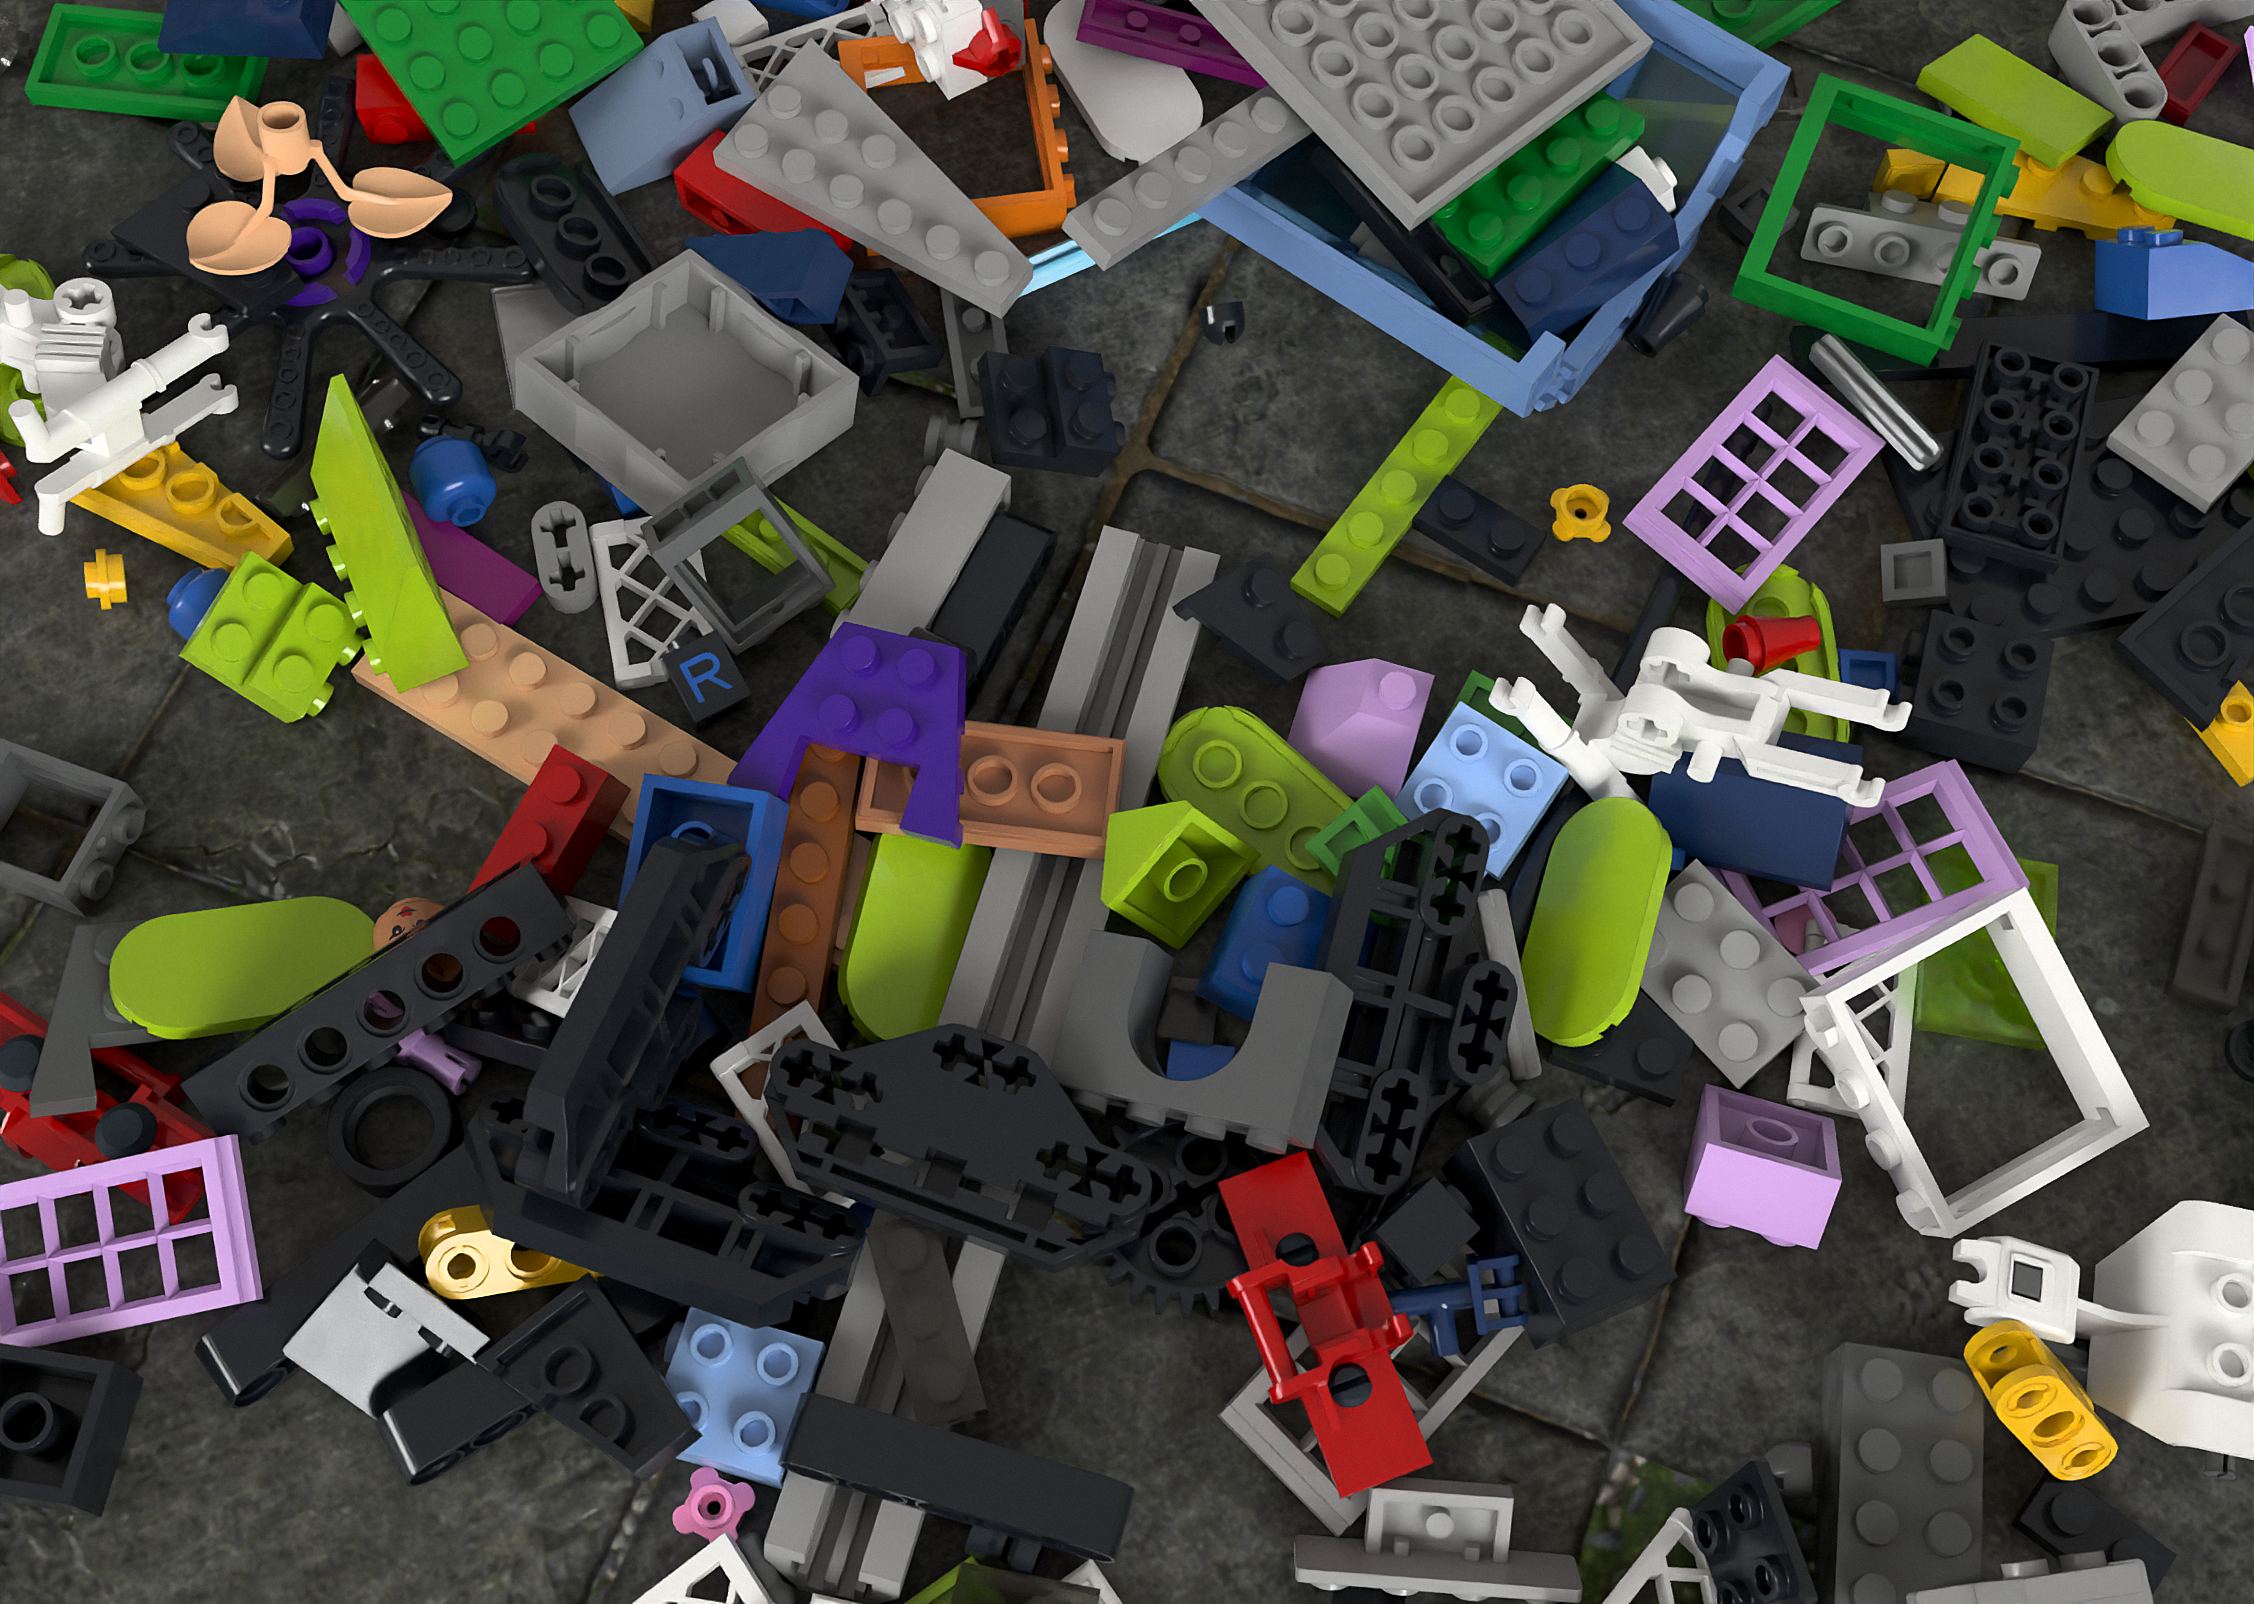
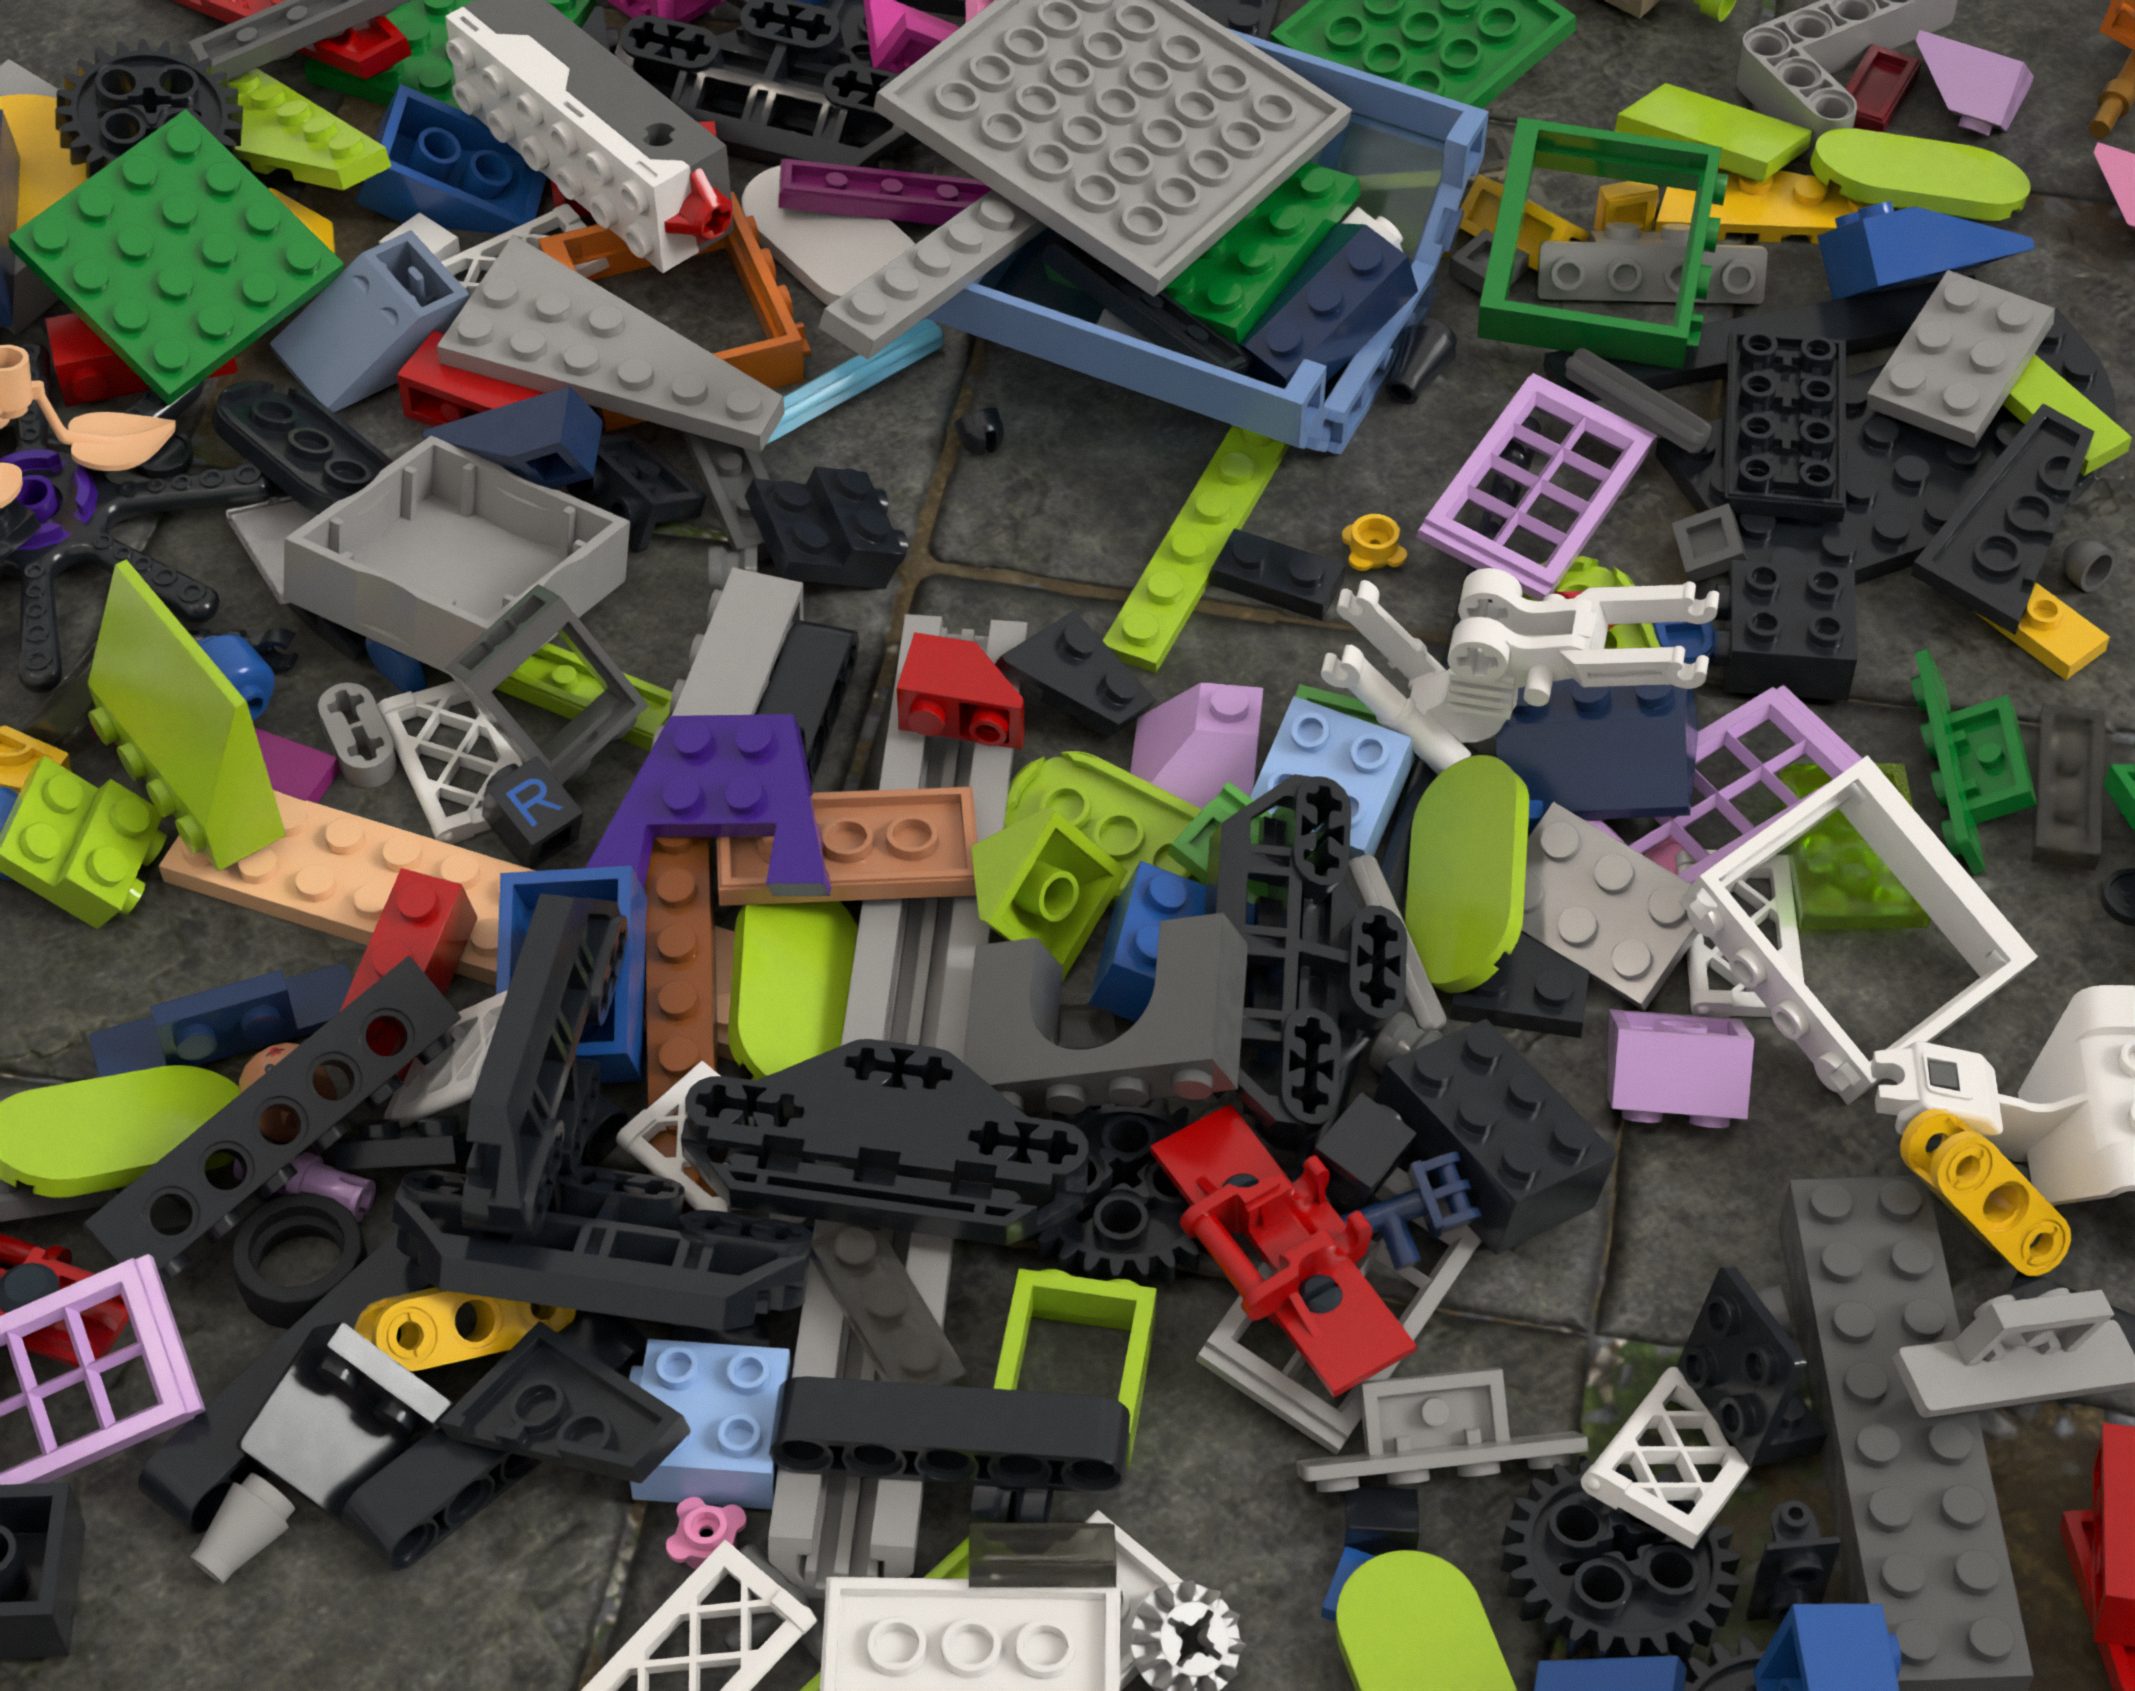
camera: 10 degrees left, 15 degrees down
(285, 1413) = (242, 1527): none -> light grey cone
(373, 857) = (223, 1021): none -> dark blue bracket
(1102, 1313) = (1089, 1302): none -> lime window
(1131, 632) = (958, 694): none -> red slope
(1823, 178) = (1539, 223): none -> yellow panel
(2135, 872) = (1978, 759): none -> green bracket

